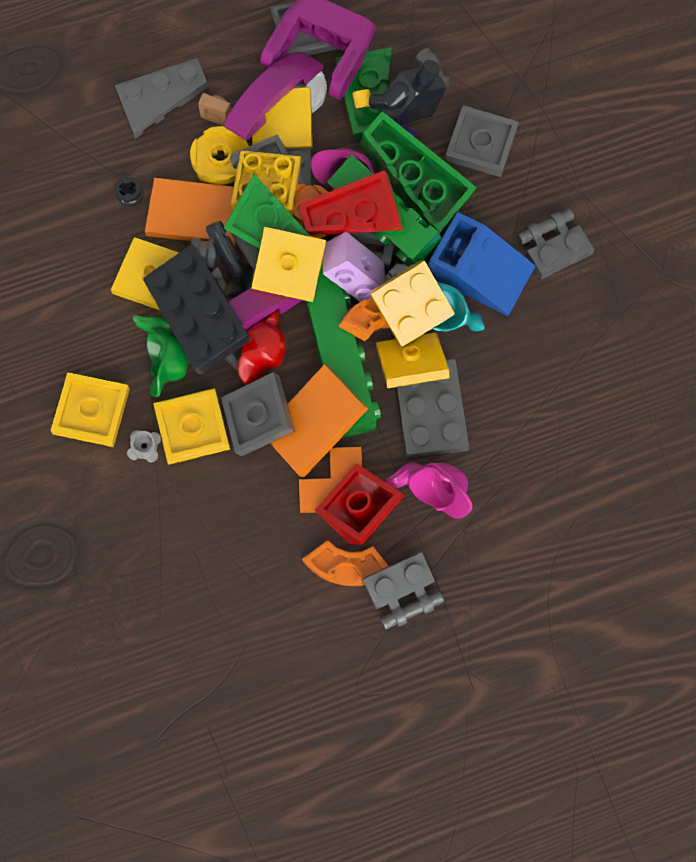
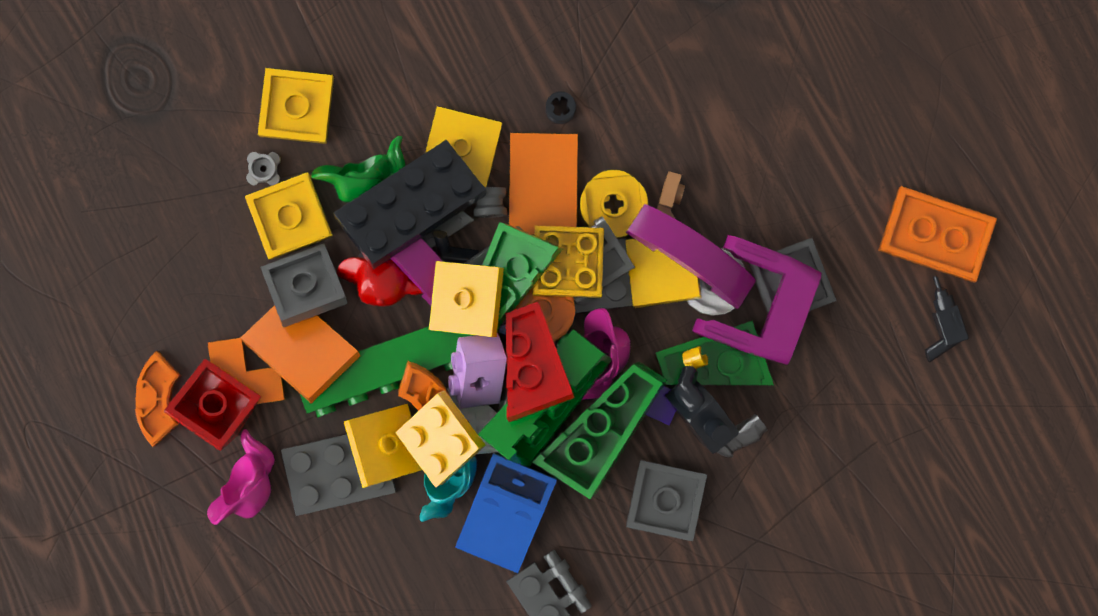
camera: 80 degrees right, 15 degrees up
(157, 93) = (687, 122): dark grey wing -> none
(225, 250) = (487, 226): black axle -> none
(398, 581) = (140, 455): plate -> none

